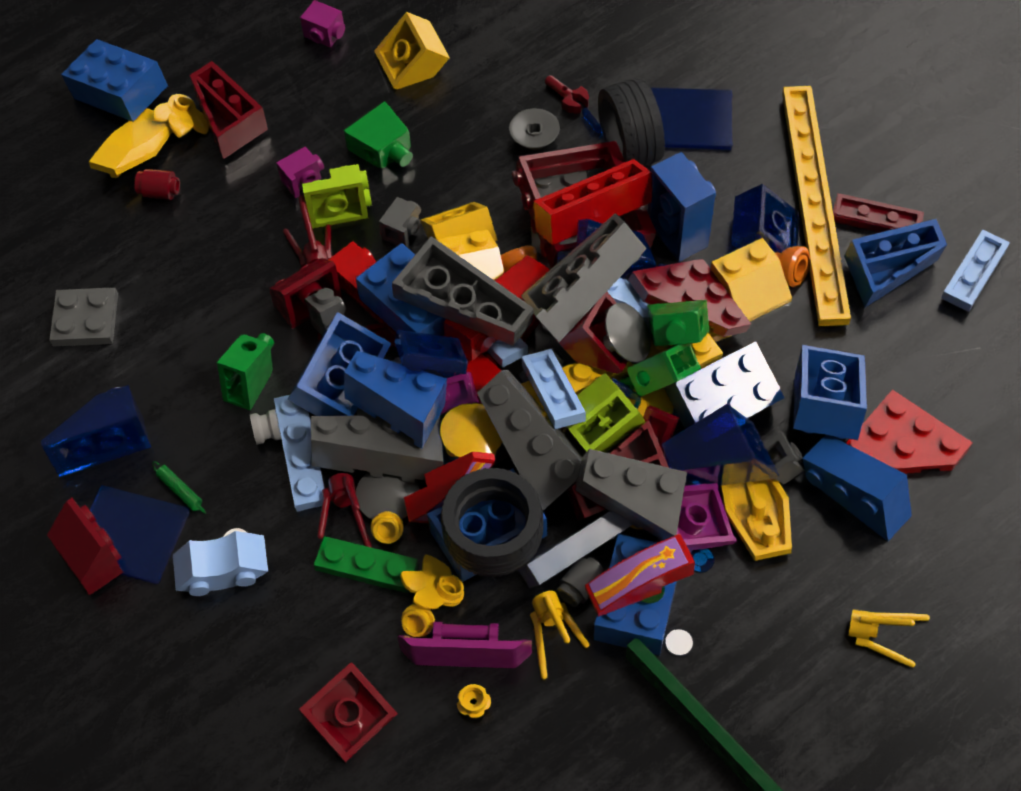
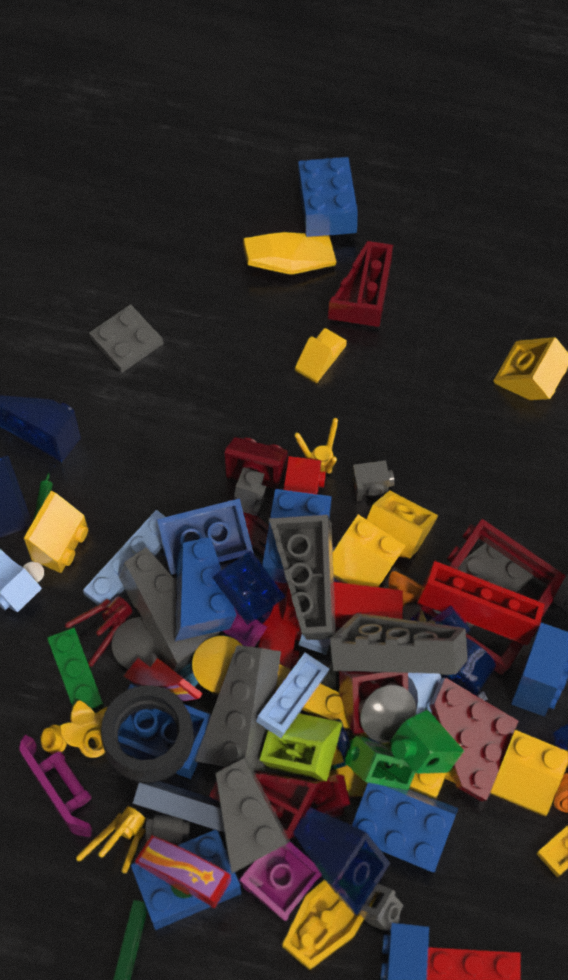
camera: 50 degrees right, 5 degrees up
(157, 184) = (267, 295): dark red brick -> none
(181, 115) = (334, 260): yellow plate -> none
(224, 488) = (55, 533): none -> yellow slope
(245, 369) = (161, 473): green torso -> none
(251, 186) = (320, 354): none -> yellow slope
(265, 426) = (127, 521): light grey wheel -> none
(299, 169) = (358, 377): magenta brick -> none
(313, 249) = (290, 443): dark red plant -> none
(322, 23) = (504, 288): magenta brick -> none
(338, 198) = (356, 422): lime plate -> none
(344, 237) = (321, 452): none -> yellow plant
(380, 138) = (435, 408): green torso -> none
(387, 527) = (111, 664): yellow plate -> none
(473, 692) = (15, 823): yellow plate -> none
(534, 128) = (542, 498): dark grey piece -> none
(679, 642) = (176, 936): white sticker -> none
(703, 559) = (254, 906): clear blue sticker -> none
(830, 392) = (464, 903): blue brick -> none

